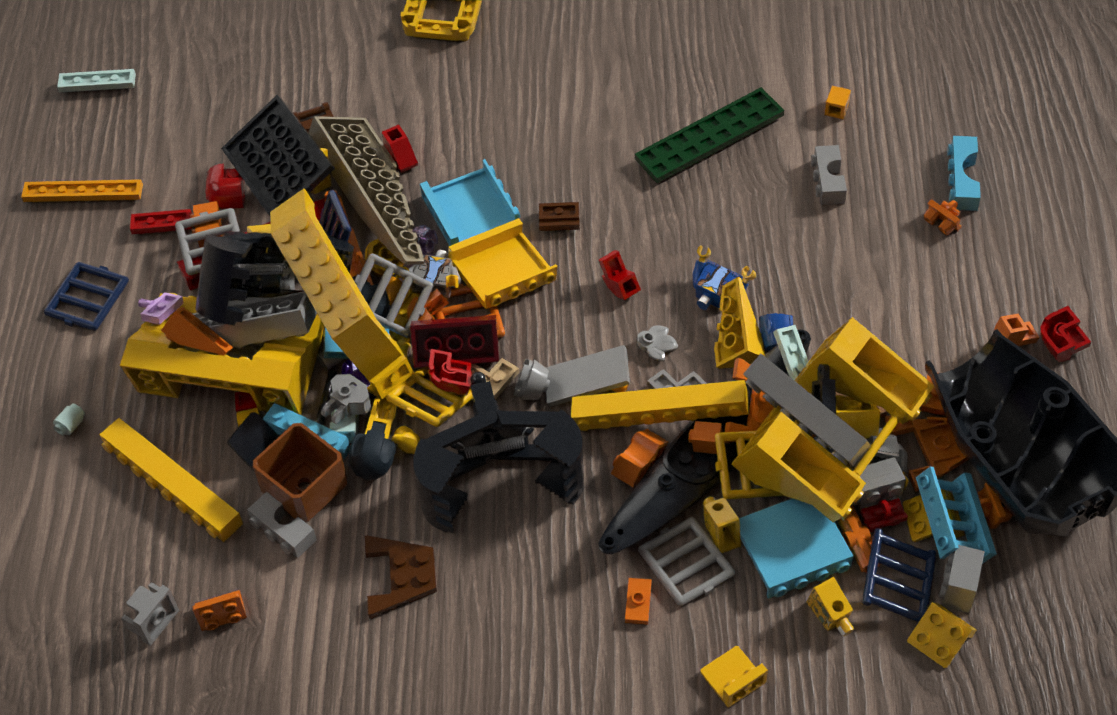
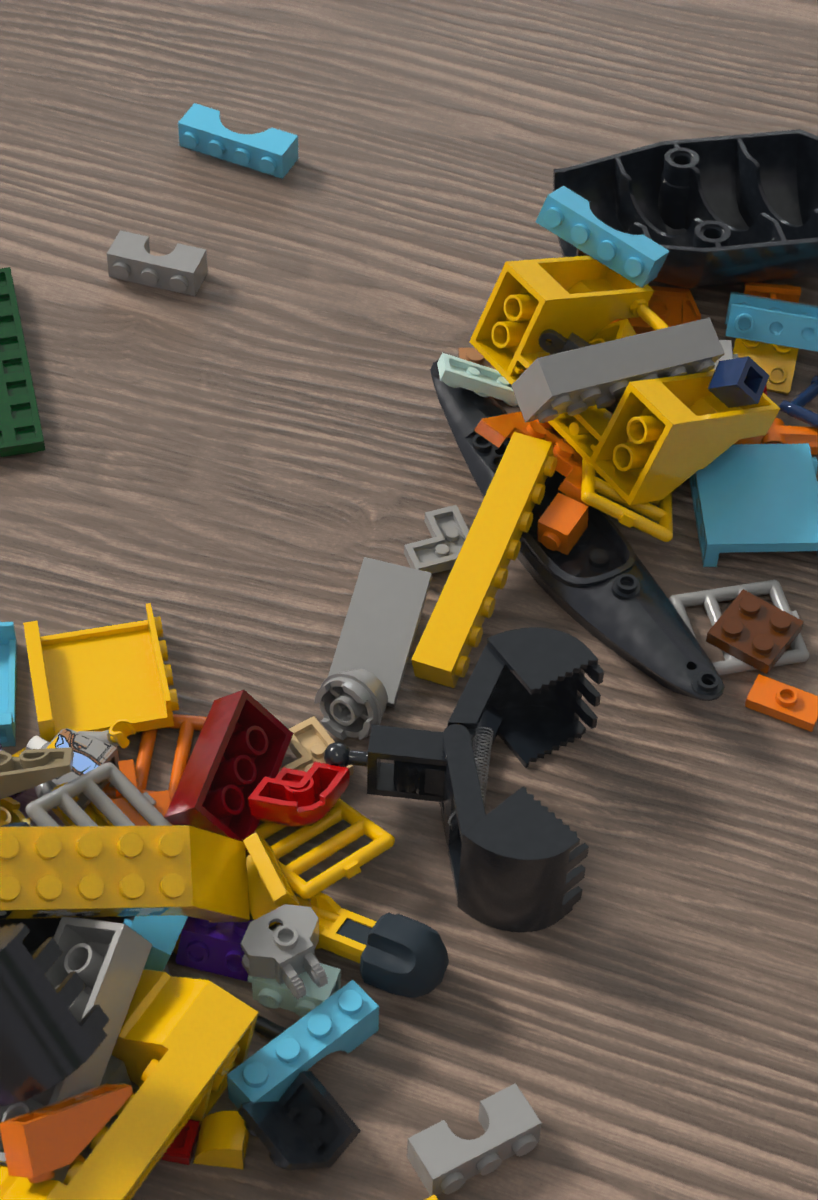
camera: 75 degrees left, 5 degrees down
(299, 458) = (410, 1035): dark orange plate -> none
(406, 439) = (386, 899): yellow animal -> none
(410, 573) = (632, 977): reddish brown wing -> none
(559, 216) = (38, 581): reddish brown plate -> none
(617, 278) = (210, 545): red brick -> none
(636, 459) = (543, 606): orange brick -> none
(656, 342) = (344, 542): light grey plate -> none
(680, 567) = (754, 631): none -> reddish brown plate
(710, 278) = (283, 438): torso -> none
(716, 517) = (700, 560): yellow torso -> none
(738, 328) = (384, 442): yellow wedge -> none
(768, 324) = (408, 401): blue helmet -> none
(831, 478) = (738, 382): none -> dark blue brick
(837, 102) = (32, 212): light orange brick -> none
(926, 394) = (627, 254): none -> medium azure arch
(946, 212) = (295, 180): orange hips -> none
(1017, 330) = (526, 184): orange brick -> none
(1062, 334) = (549, 148): red brick -> none

